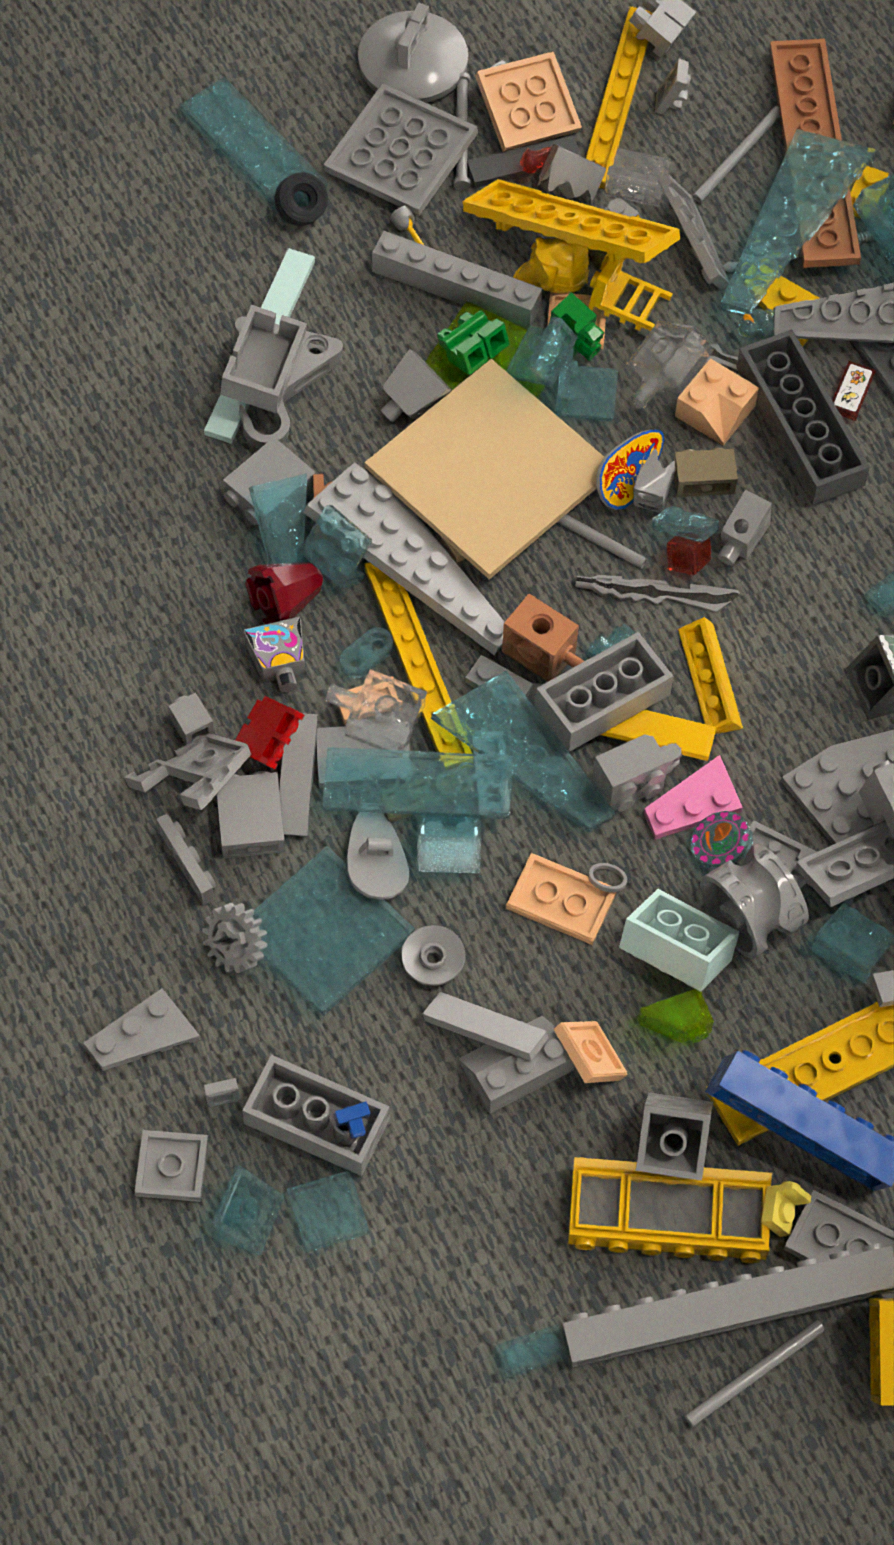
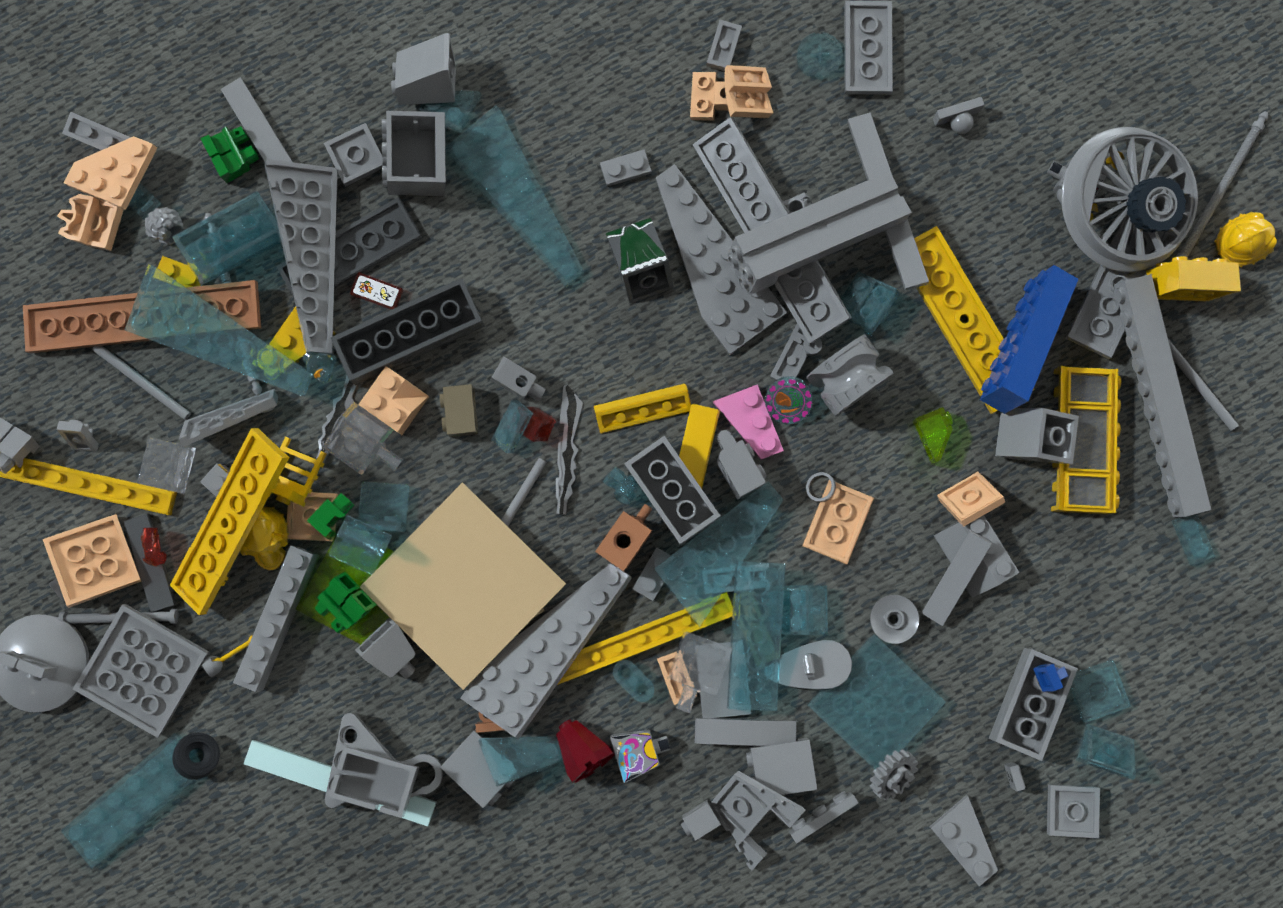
camera: 85 degrees left, 20 degrees up
(269, 730) = (715, 758): red plate -> none
(336, 547) = (549, 710): clear light blue bracket -> none
(571, 173) = (169, 521): light grey piece -> none
(621, 467) = (460, 472): shield -> none
(653, 483) = (479, 453): light grey piece -> none
(679, 939) = (881, 431): light aqua brick -> none
(780, 1206) = (1083, 360): light yellow bracket -> none

